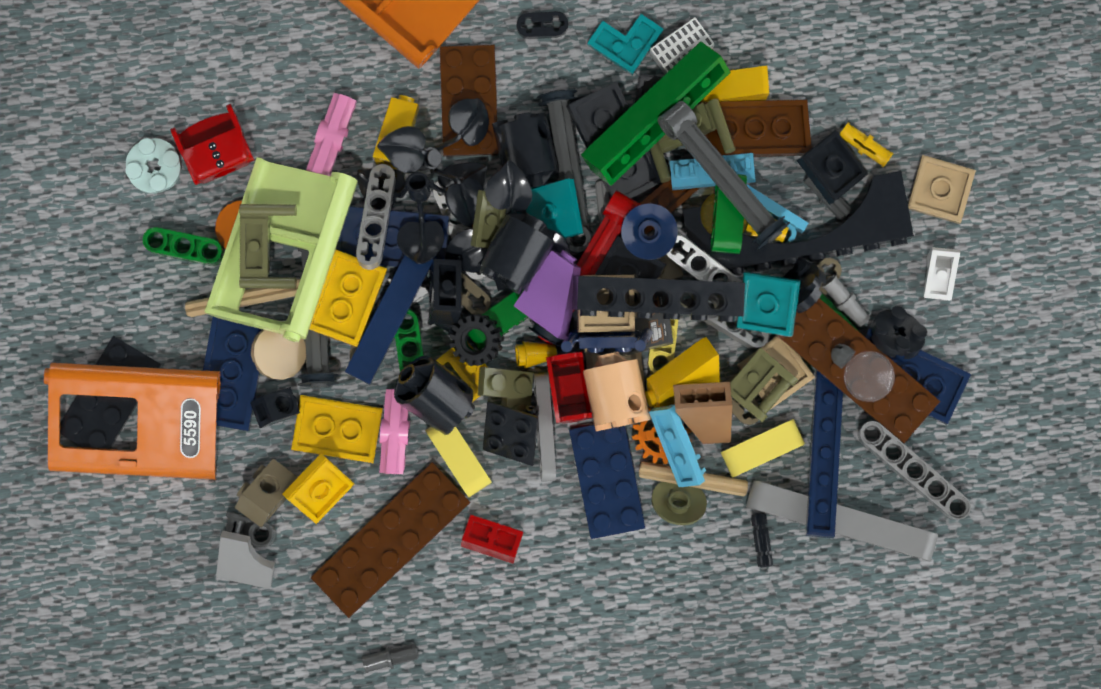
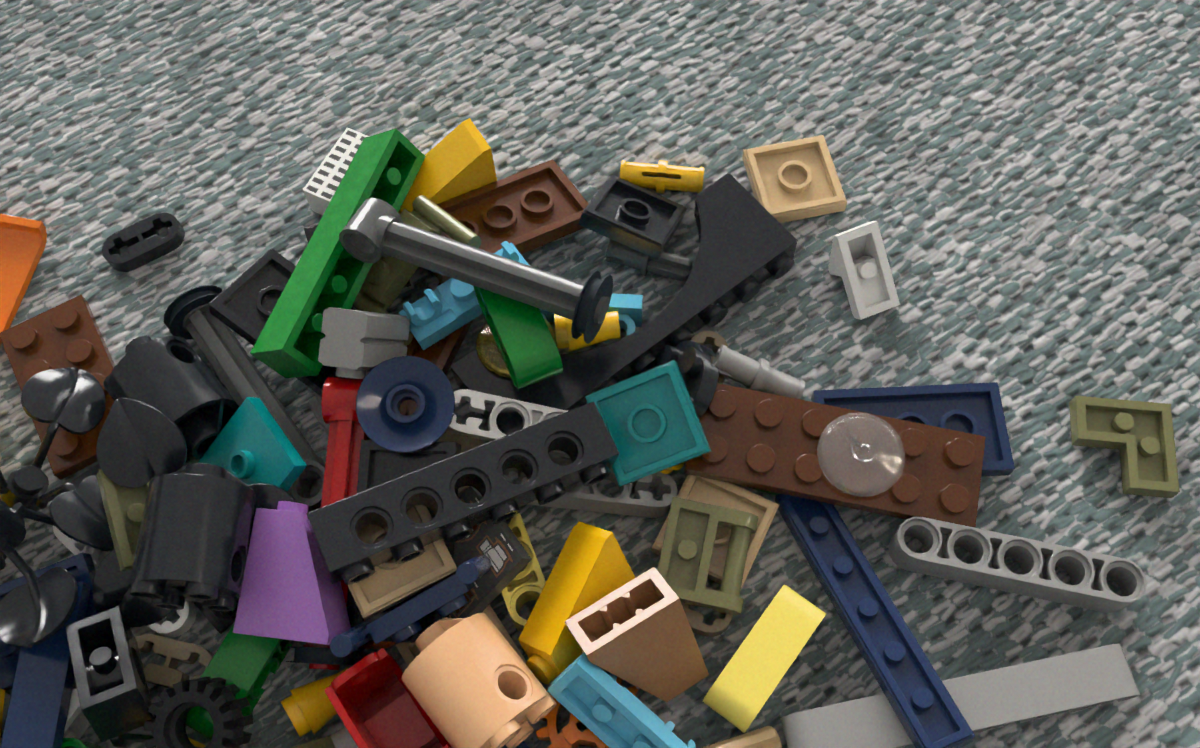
camera: 25 degrees left, 20 degrees down
(626, 50) = (272, 218): teal plate -> none
(644, 180) = (361, 340): none -> light grey brick
(841, 355) = (802, 439): dark grey hinge -> none
(898, 320) = (860, 378): black plate -> none
(1027, 438) = (1139, 432): none -> olive plate

